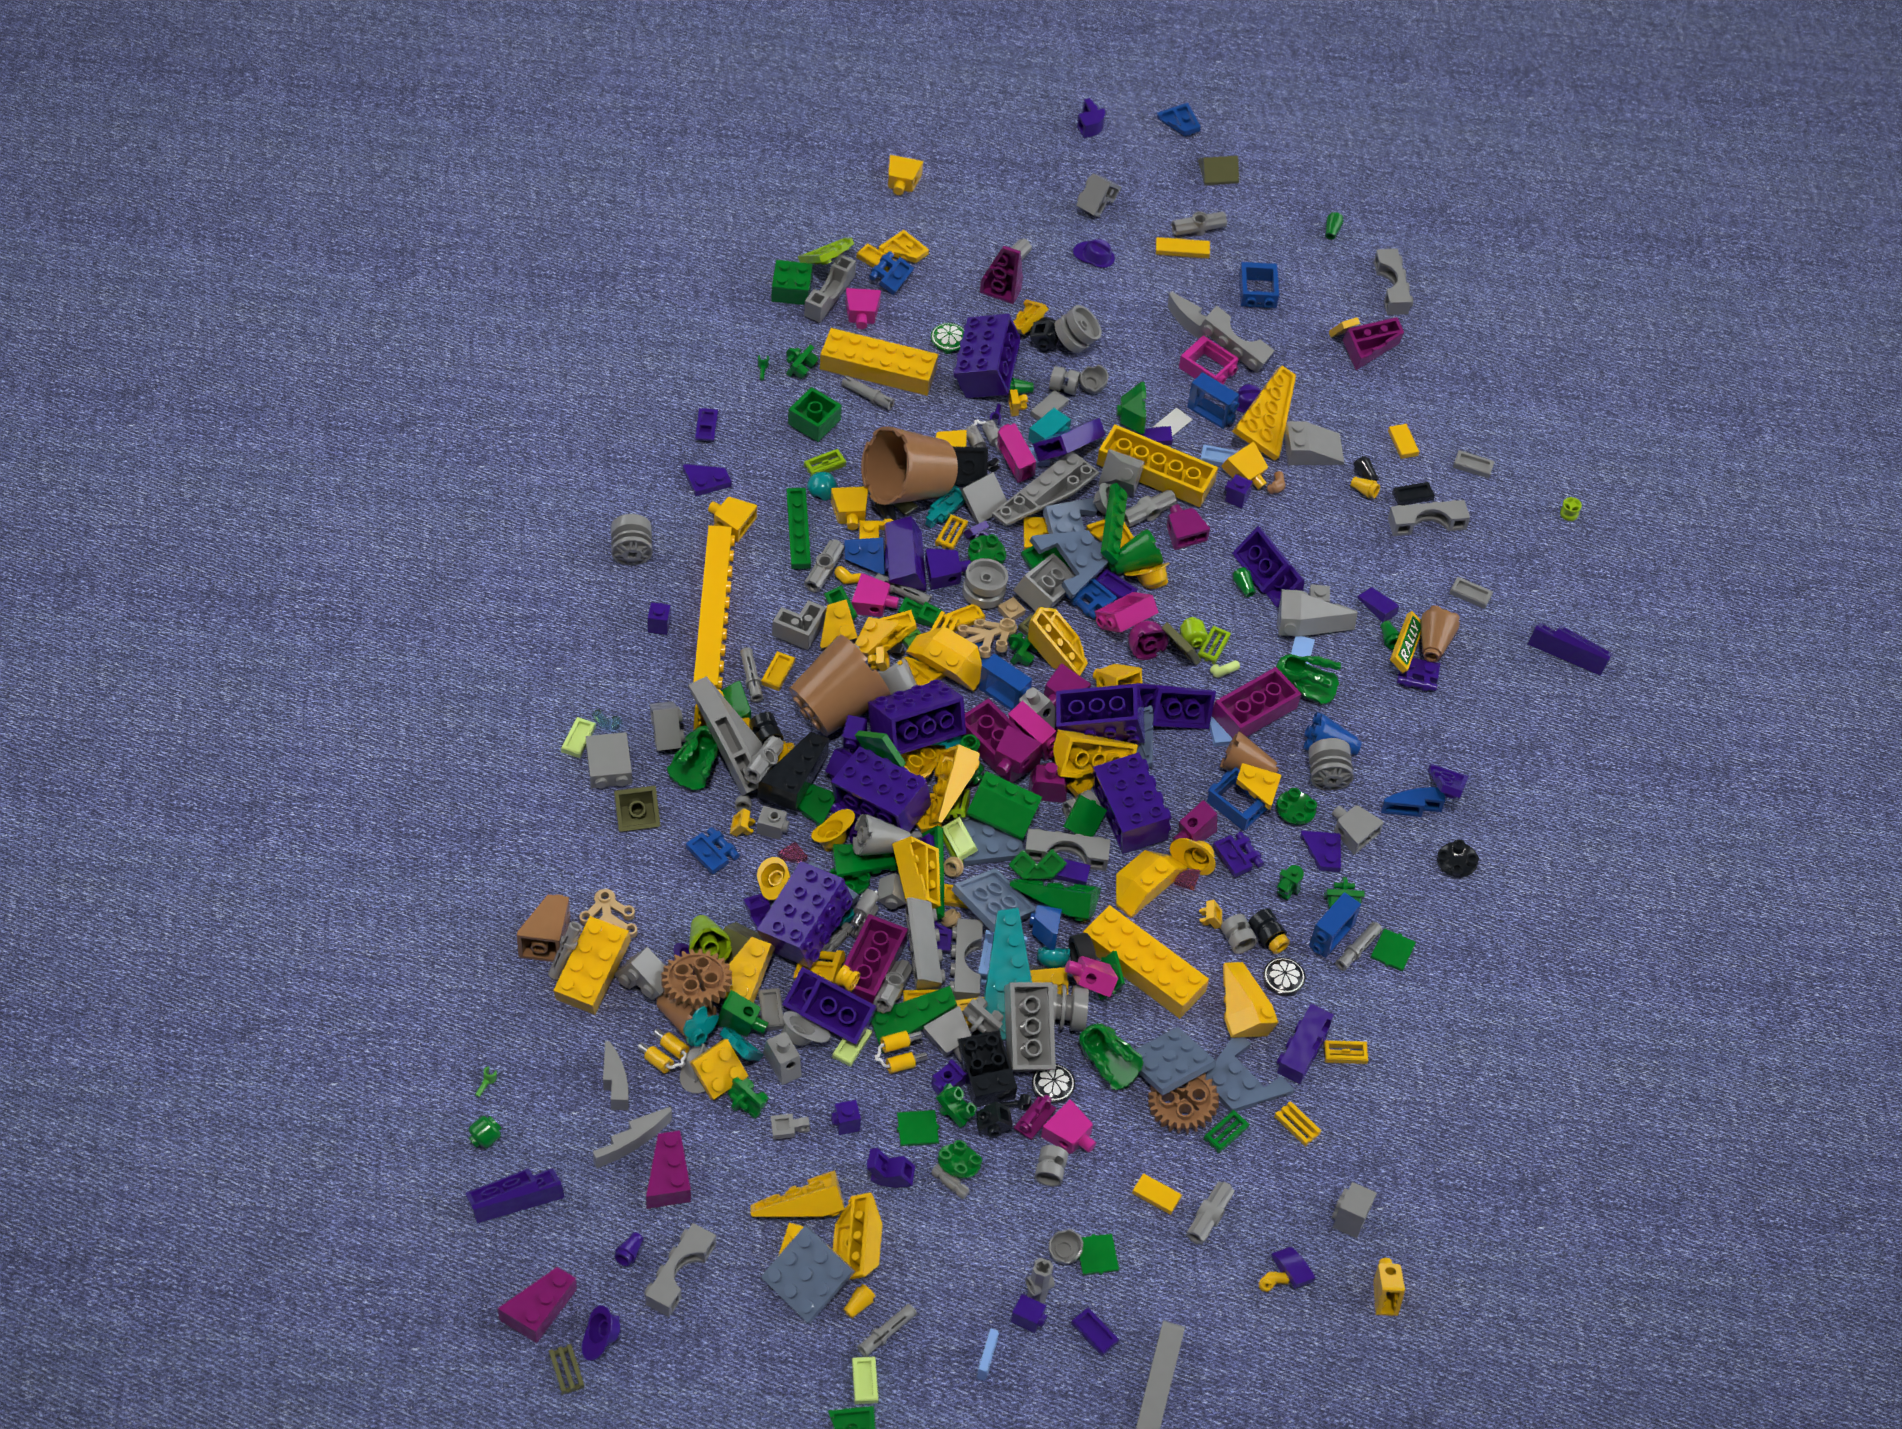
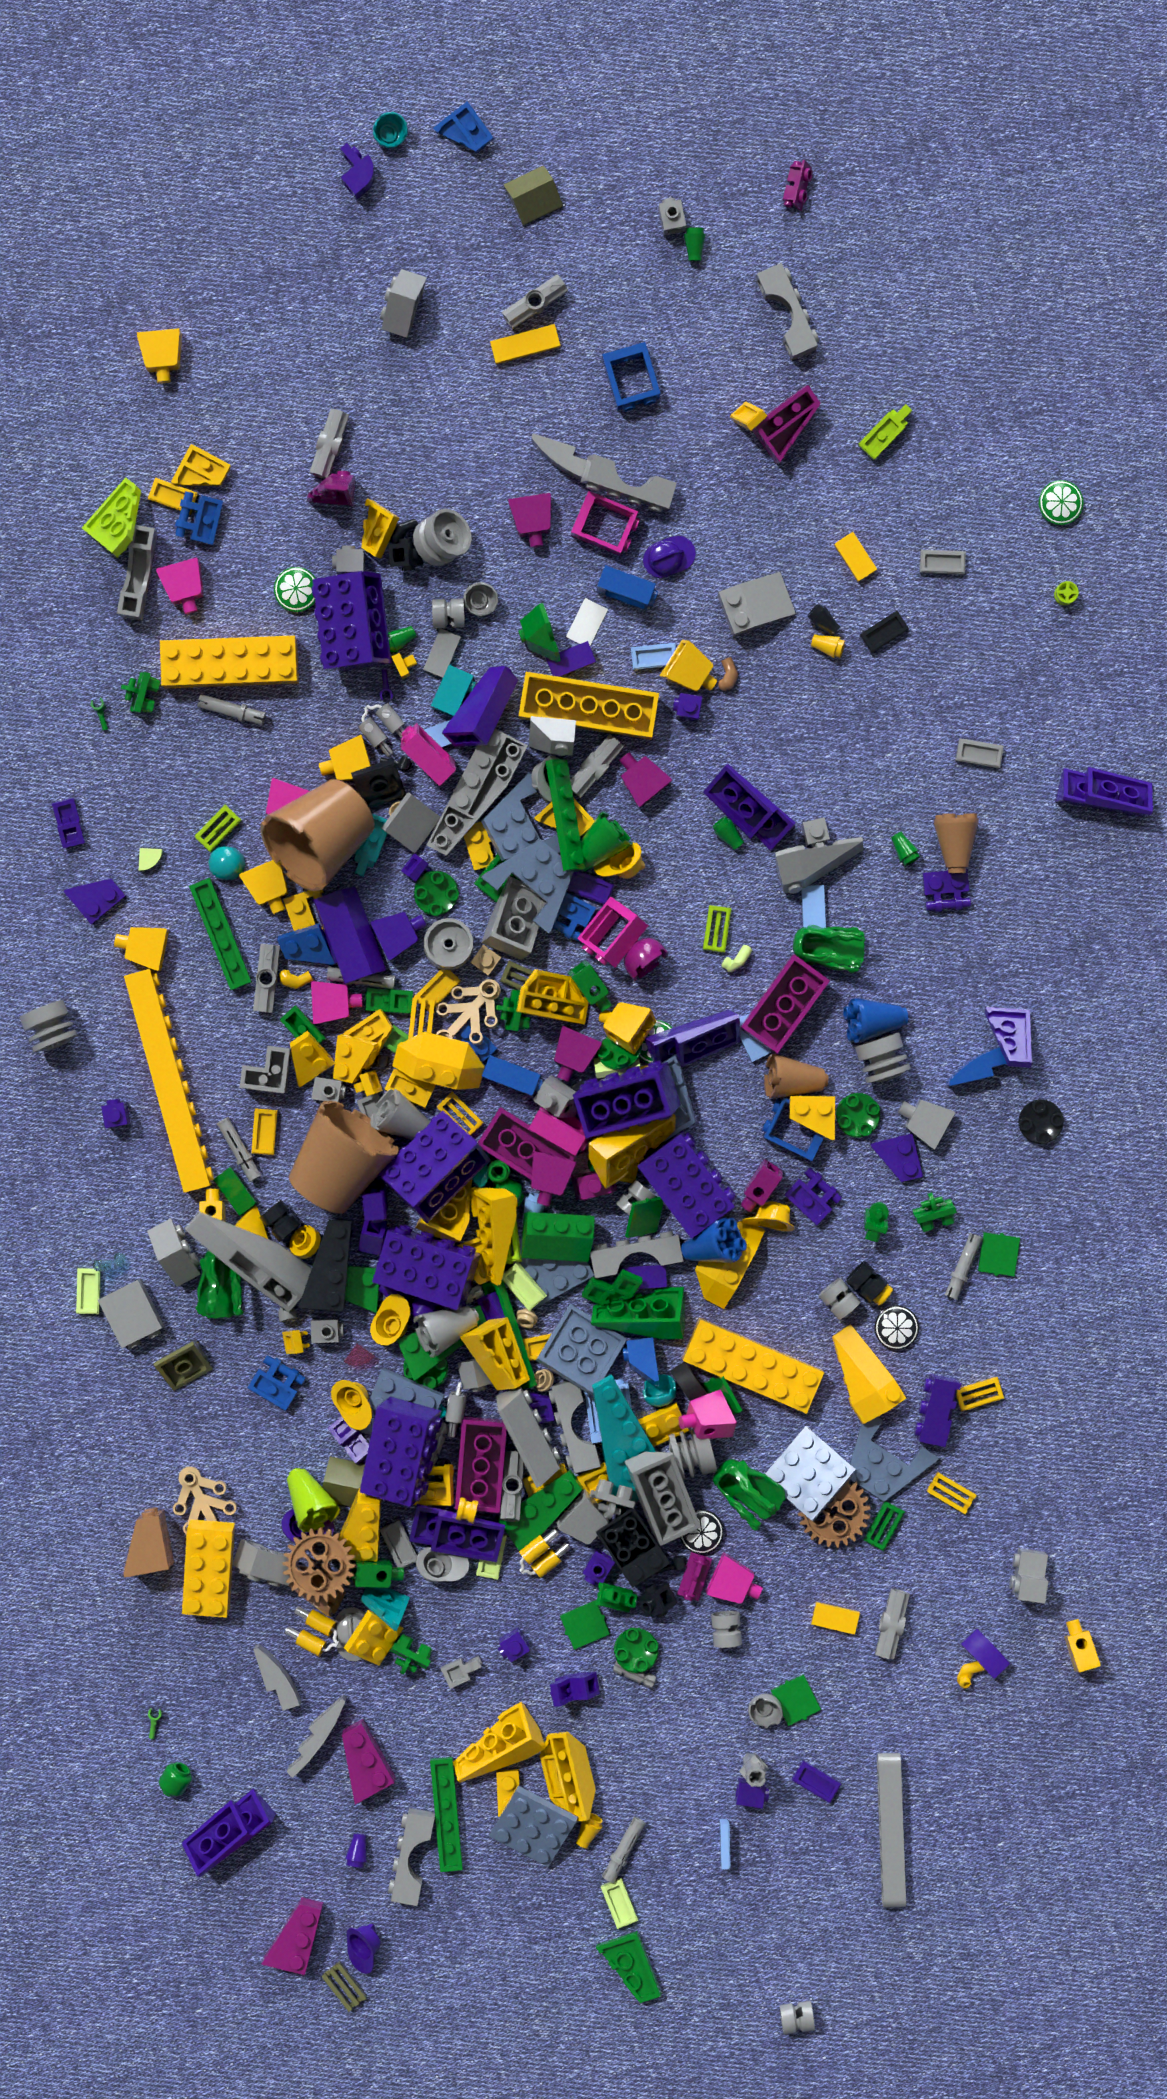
camera: 10 degrees left, 35 degrees up
(567, 944) = (177, 1569): light grey pin -> none
(699, 1026) = (339, 1609): teal plate -> none
(727, 1244) = (446, 1814): none -> green plate
(761, 465) = (149, 858): none -> yellowish green tile
(763, 759) = (293, 1278): light grey piece -> none
(780, 1052) = (429, 1601): light grey torso -> none
(791, 282) = (89, 577): green brick -> none
(814, 414) = (184, 771): green brick -> none
(880, 745) = (410, 1229): green tile -> none
(952, 545) = (386, 895): yellow tile -> none
(1094, 642) = (585, 978): none -> green torso
(1095, 252) = (423, 391): dark purple piece -> none
(1124, 102) = (390, 130): none -> teal hair
(1141, 847) = (716, 1243): none -> blue cone
(1152, 343) = (532, 517): none -> magenta torso
(1176, 639) = (683, 953): olive tile -> none
(1188, 878) = (769, 1243): clear pink tile -> none
(1194, 631) = (691, 926): lime head -> none
(1213, 914) = (807, 1282): yellow tile -> none
(1268, 414) = (693, 594): yellow wing -> none
(1320, 206) = (671, 216): none -> light grey brick
(1334, 925) = (934, 1261): blue window -> none
(1379, 604) = (880, 807): dark purple slope -> none
(1406, 642) = (925, 860): tile -> none
(1423, 215) = (799, 174): none -> magenta hinge
(1449, 371) = (885, 432): none -> lime hinge
(1450, 514) = (934, 653): light grey arch -> none
(1580, 454) = (1060, 502): none -> dish

